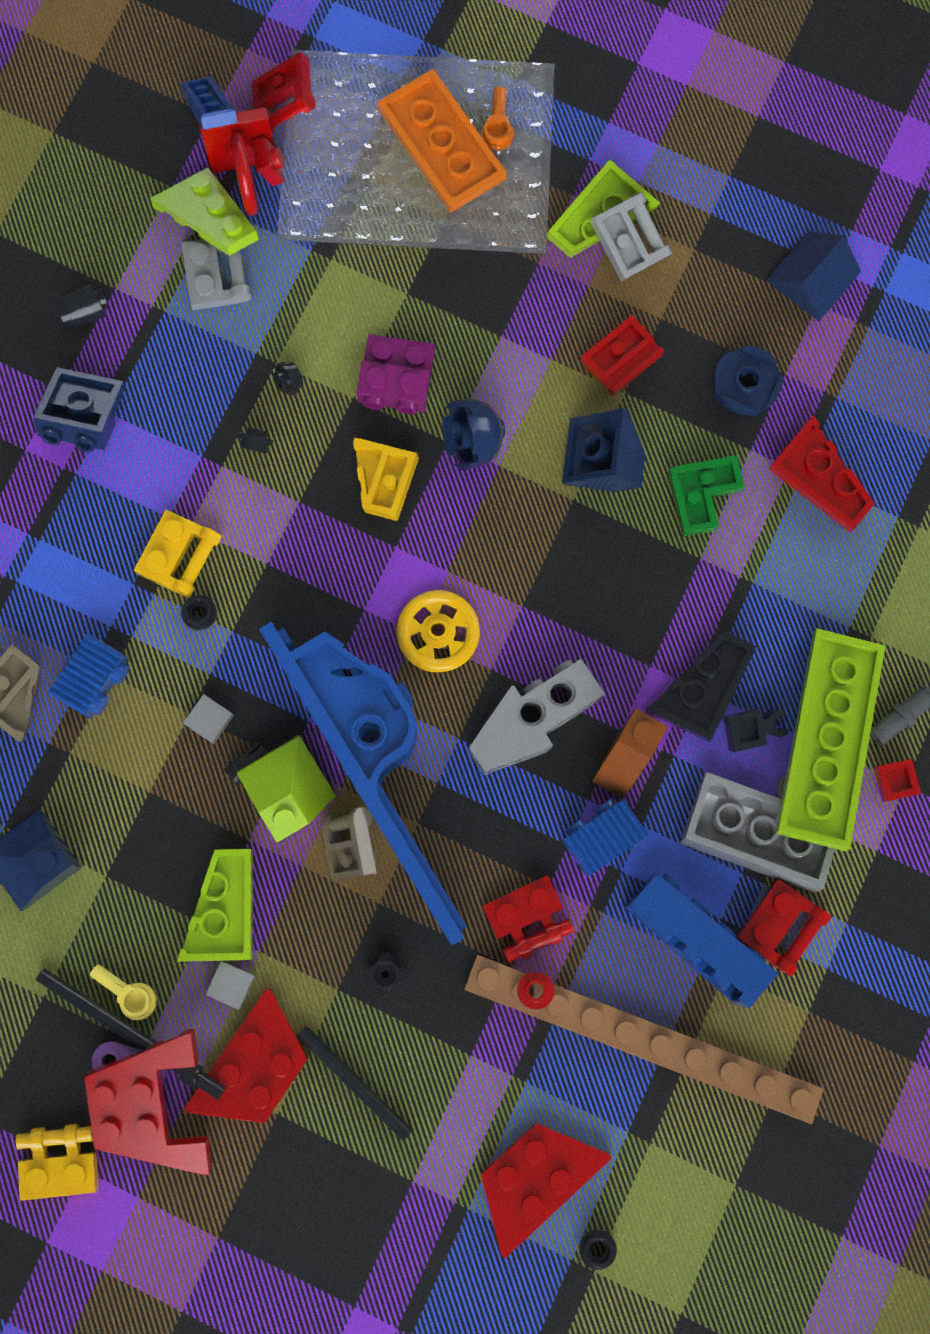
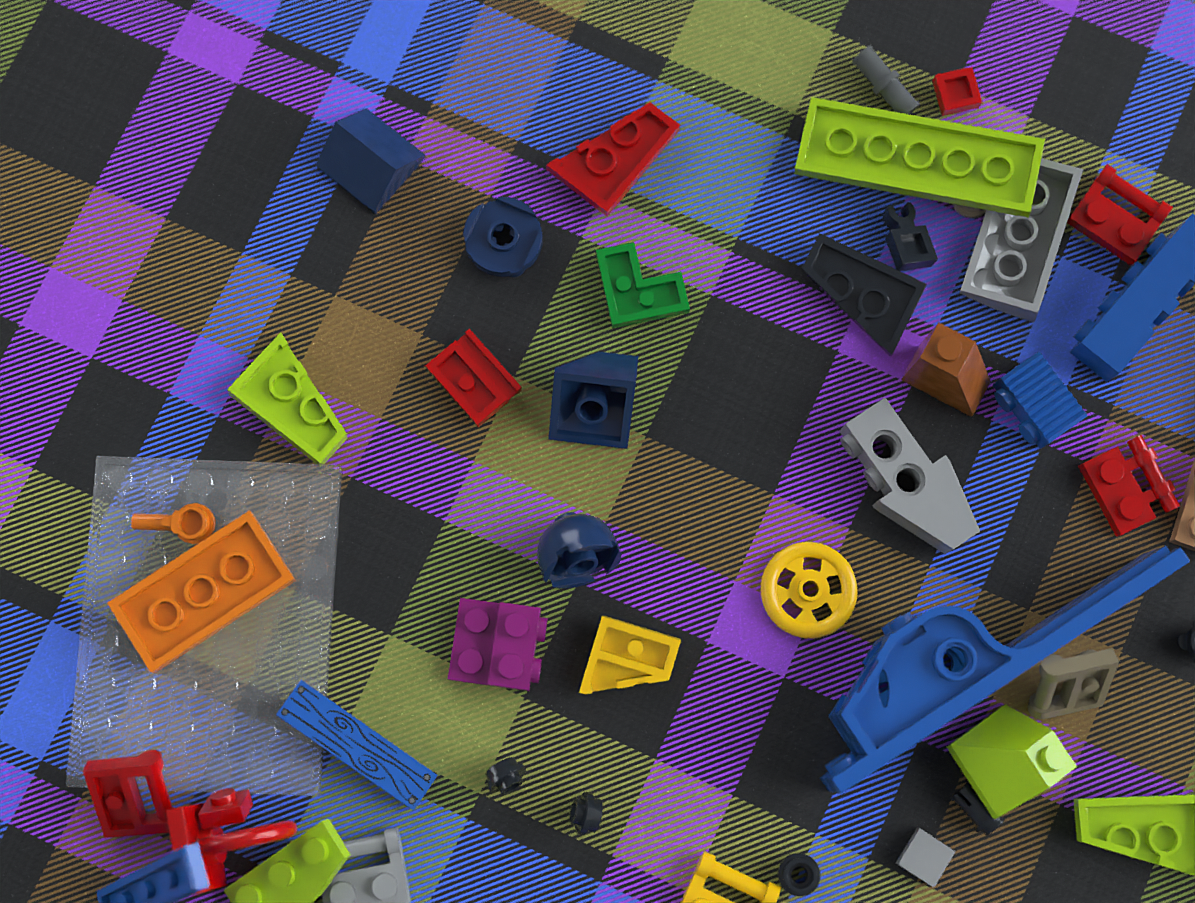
camera: 90 degrees left, 0 degrees up
(316, 261) = (356, 745): none -> blue tile
(623, 241) = (332, 375): light grey plate -> none

